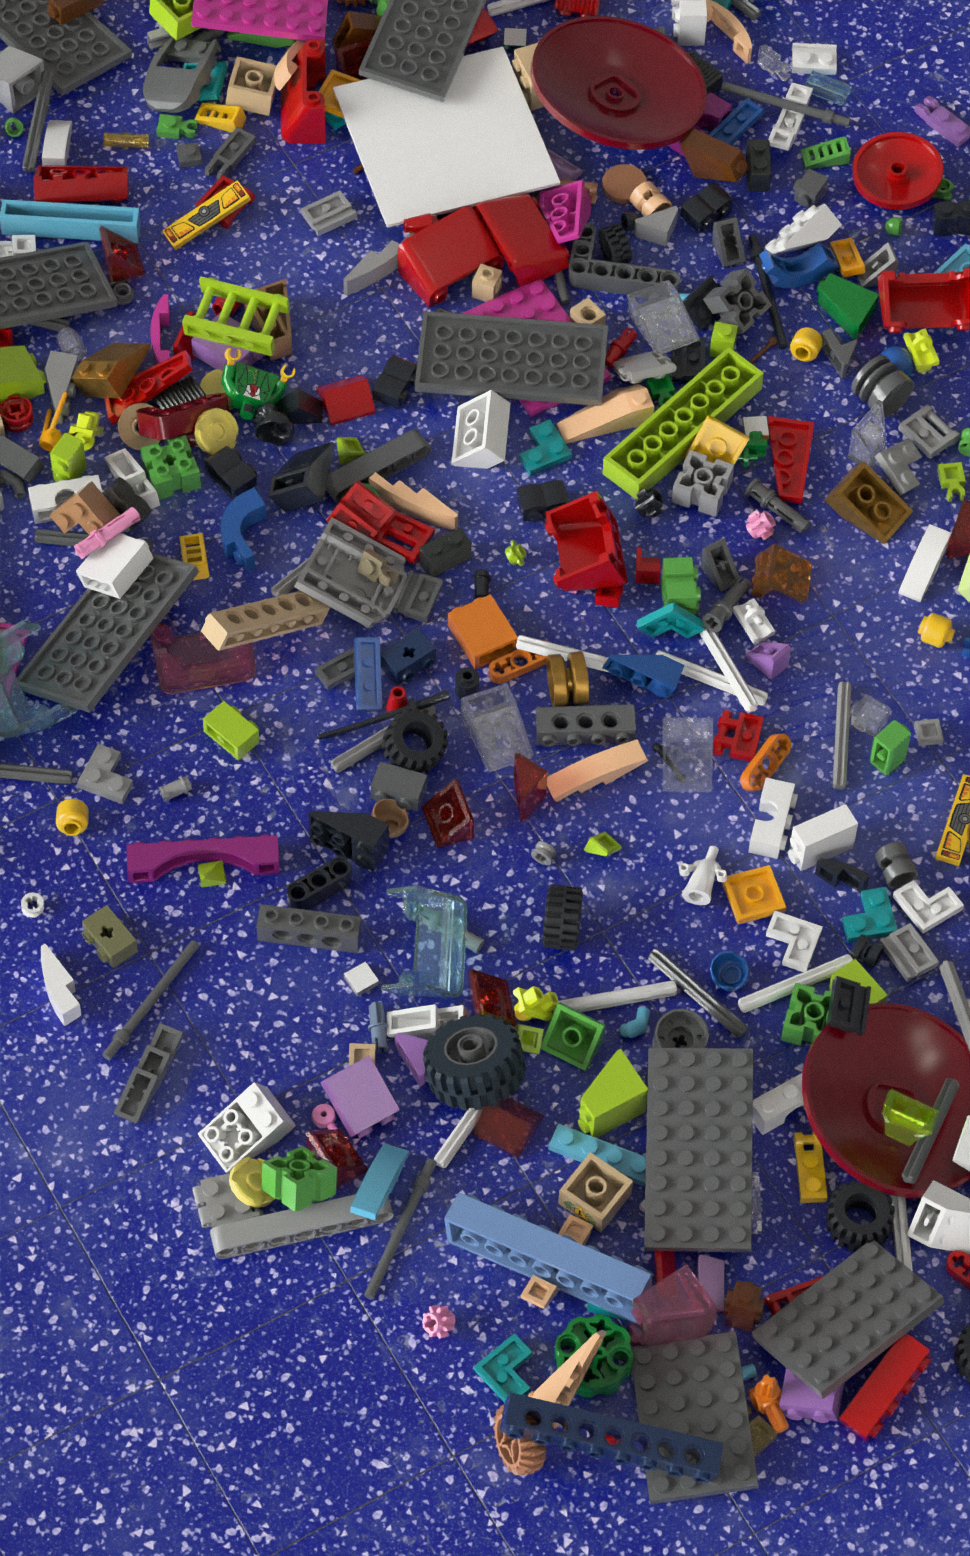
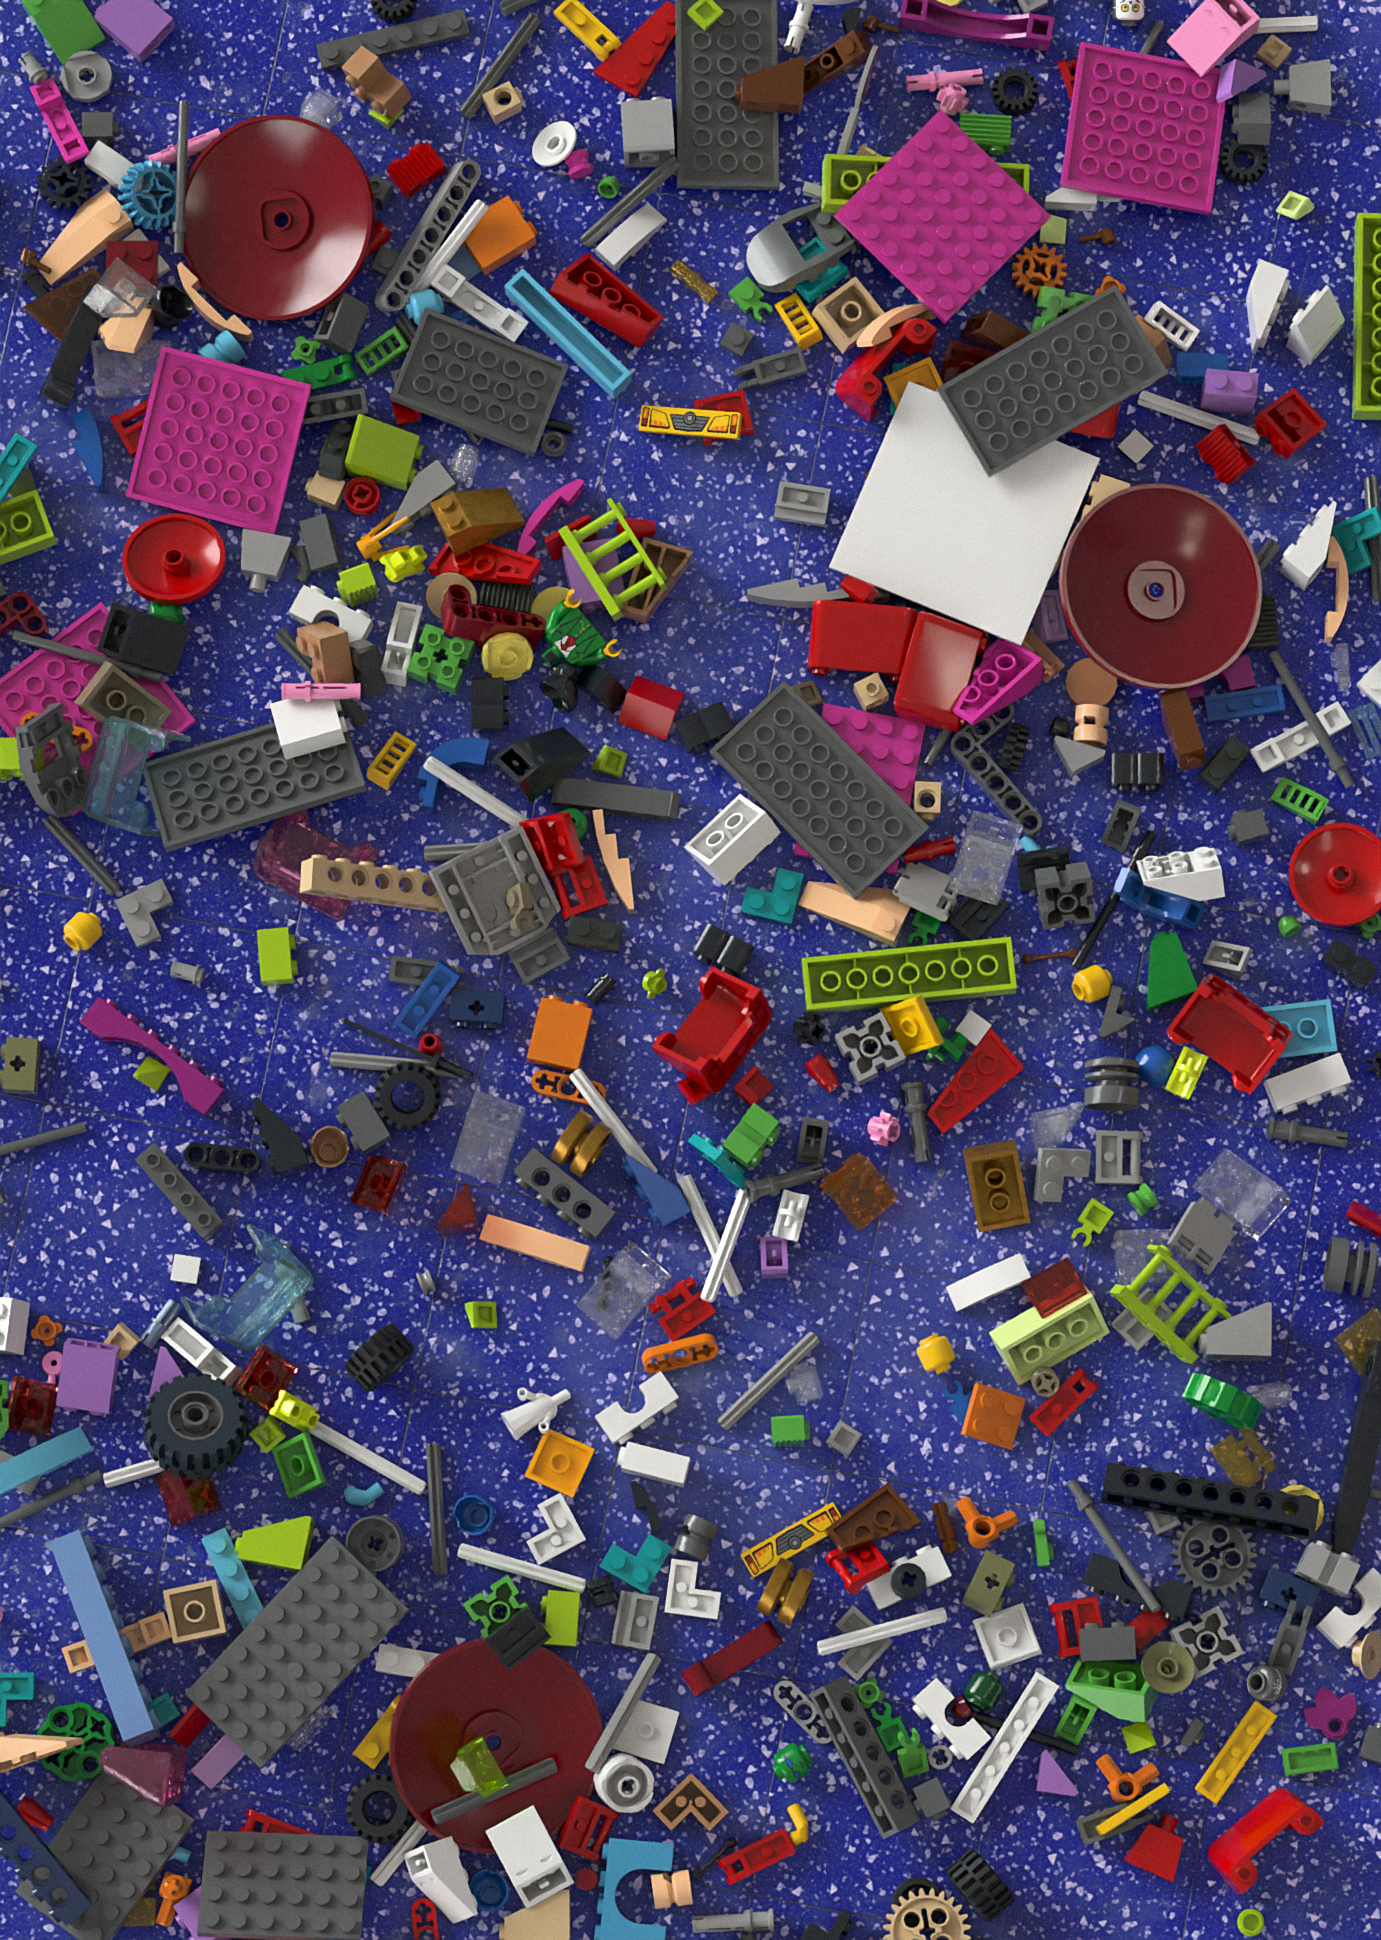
camera: 45 degrees right, 20 degrees up
(120, 256) = (581, 405): clear red slope -> none
(281, 526) = (473, 792): none -> white axle
(297, 1091) = (47, 1338): none -> orange plate
(466, 682) = (500, 1083): black brick -> none
(684, 524) = (822, 1072): none -> red cone
(723, 336) = (1022, 920): lime brick -> none
(744, 1306) = (220, 1805): reddish brown brick -> none
(848, 257) = (1212, 925): light orange plate -> none

